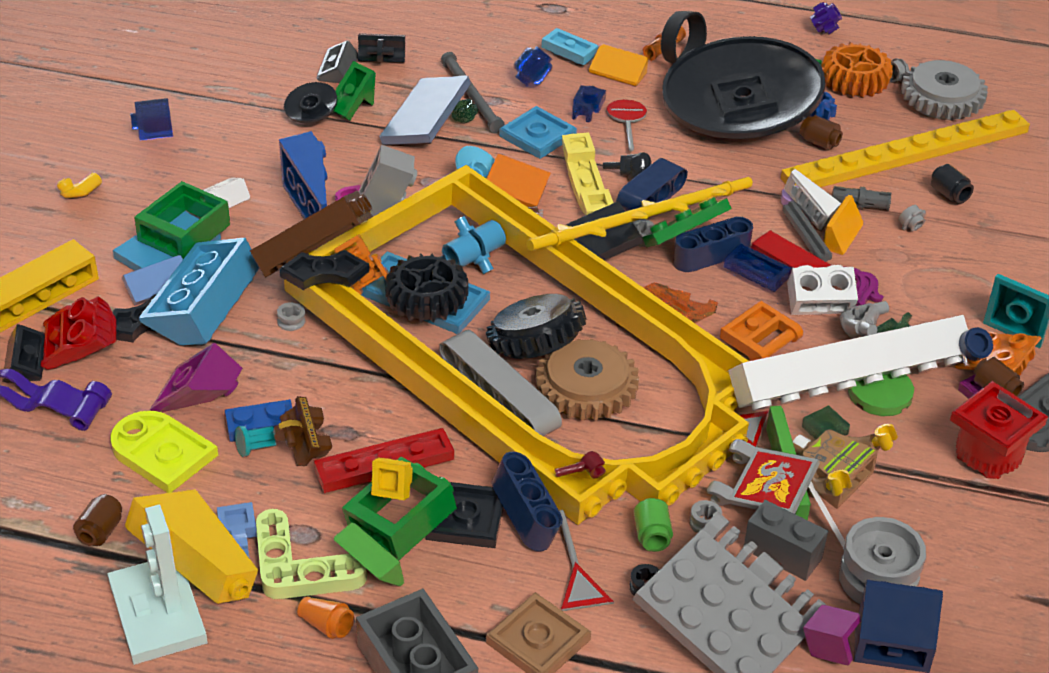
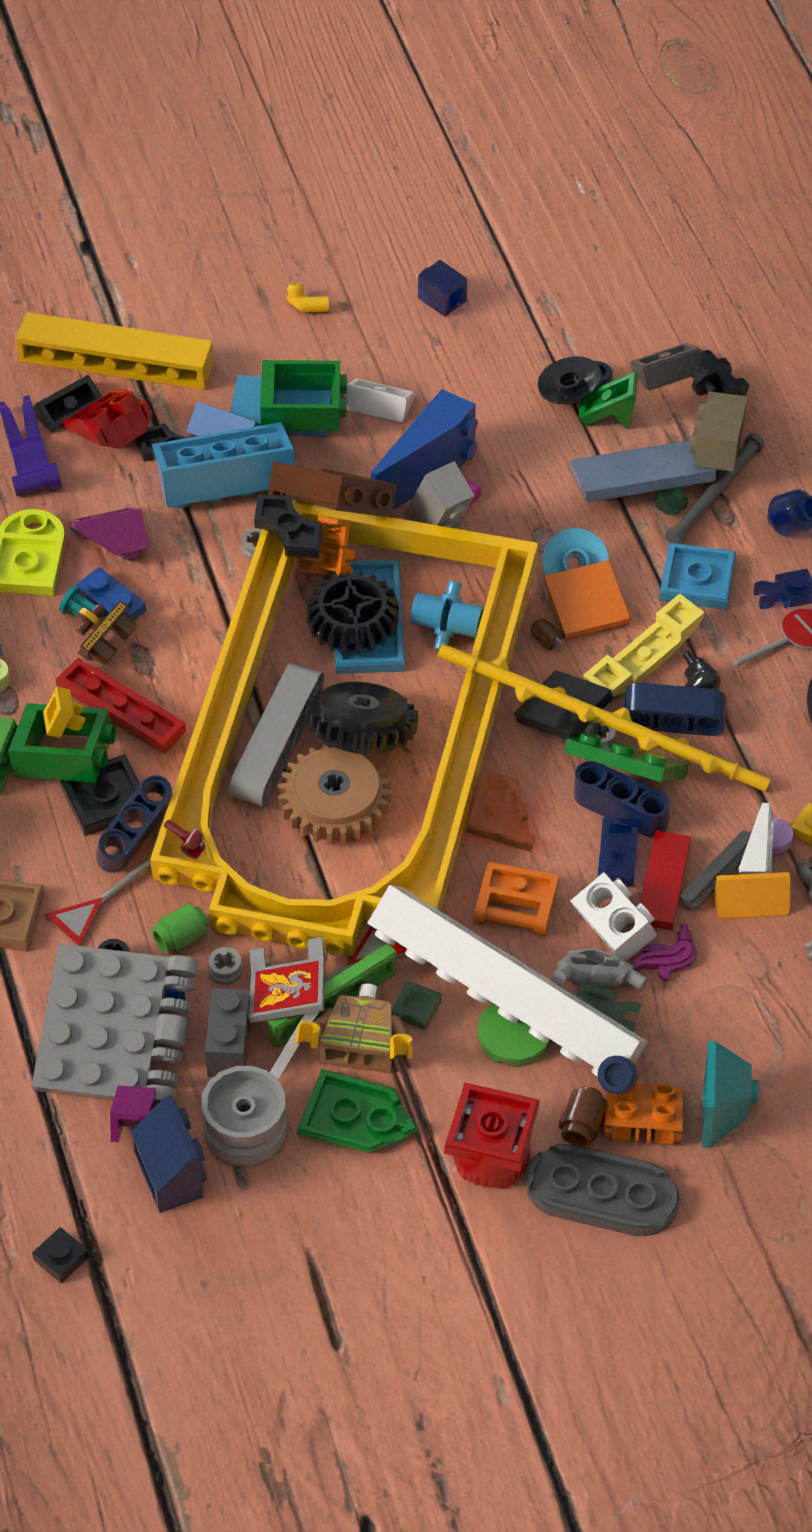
camera: 60 degrees right, 10 degrees up
(436, 59) = (718, 431): none -> dark tan brick
(908, 500) = (355, 1113): none -> green tile

